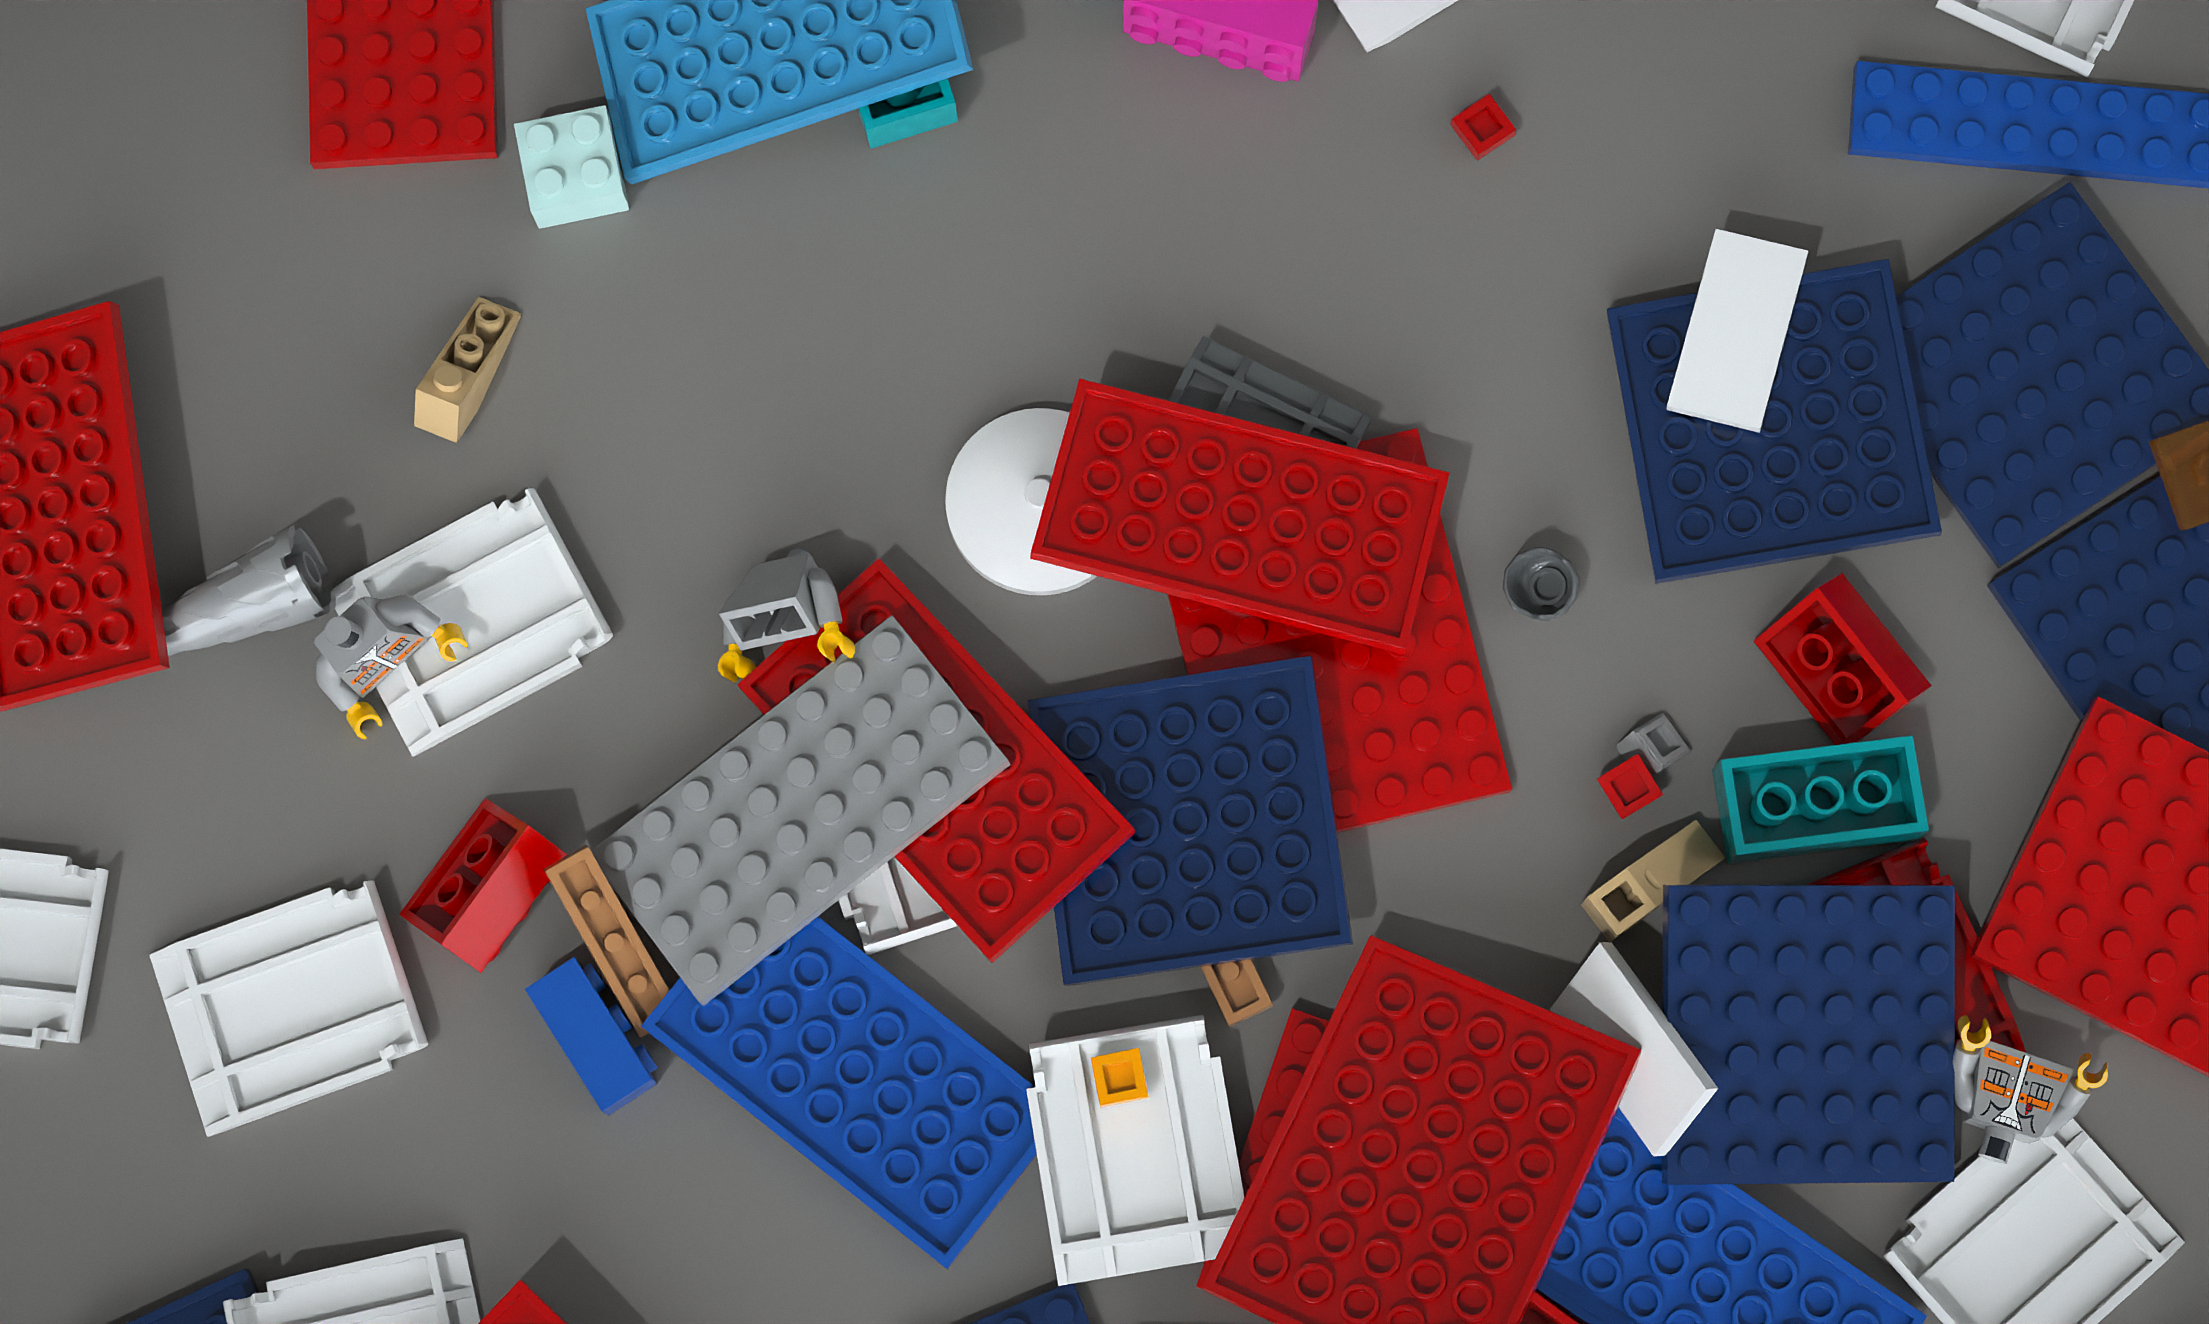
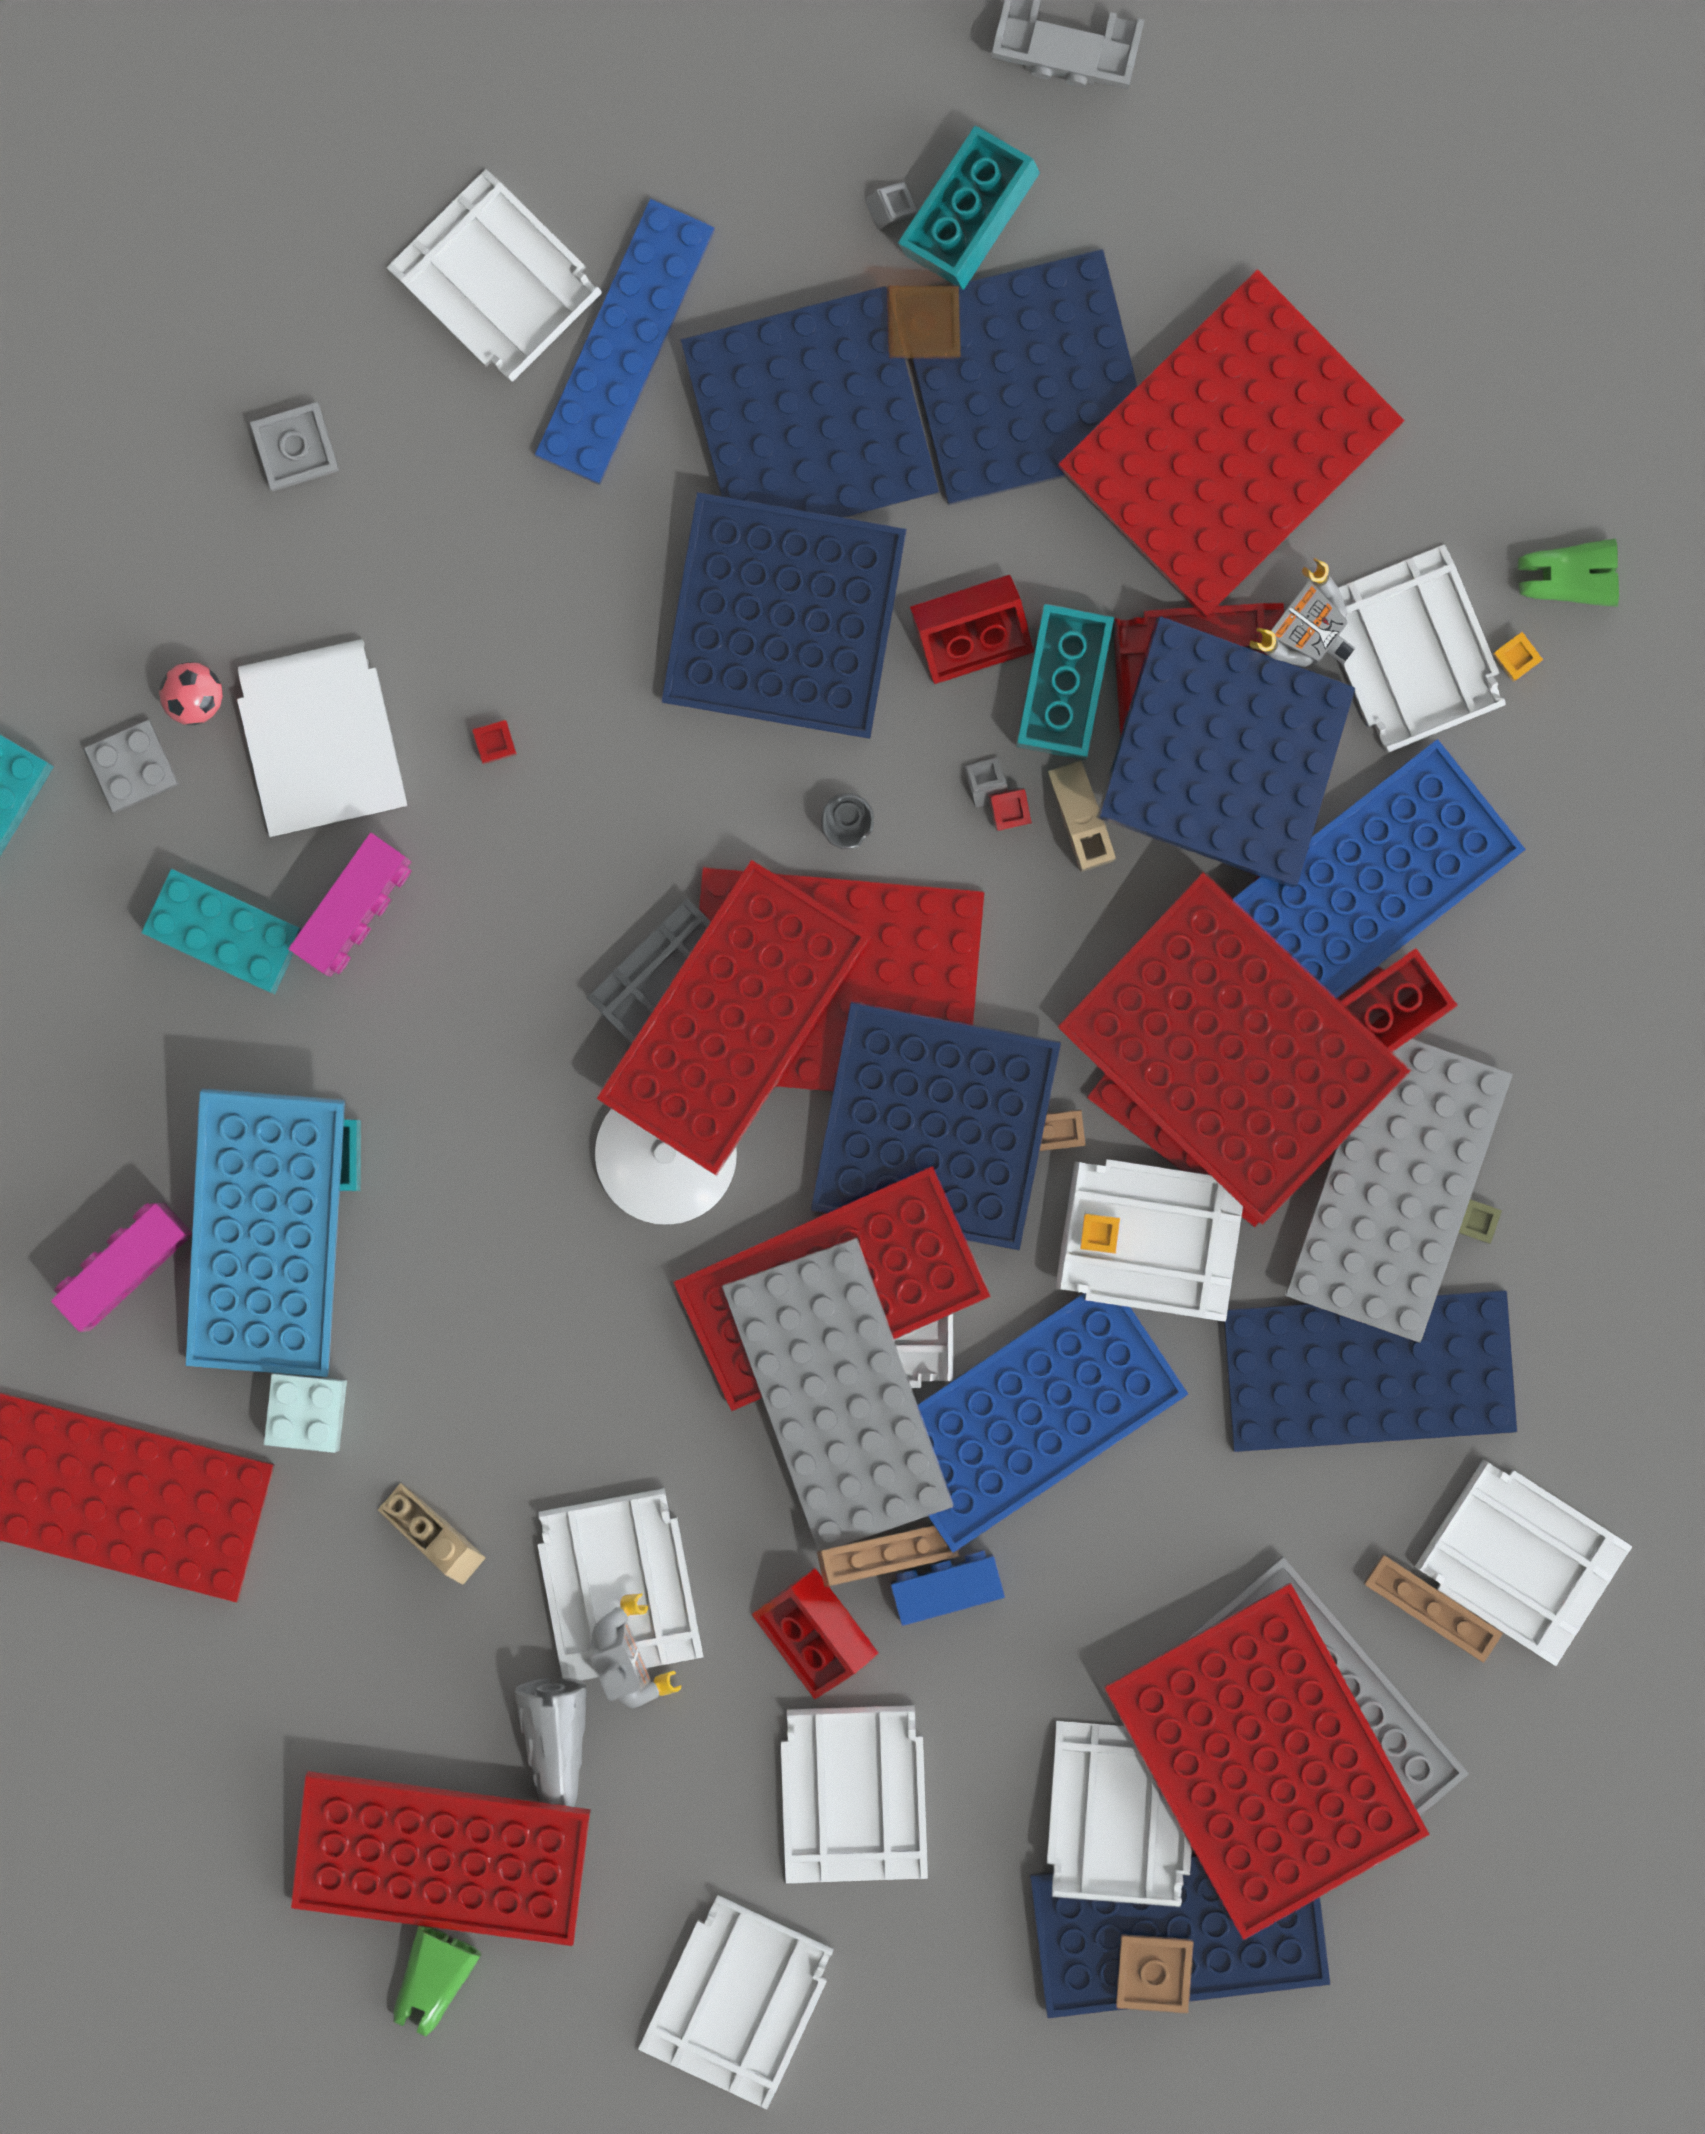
camera: 75 degrees left, 10 degrees up
(780, 604) = (686, 1363): light grey torso -> none
(1668, 1080) = (1162, 878): white tile -> none
(1737, 330) = (712, 617): white tile -> none

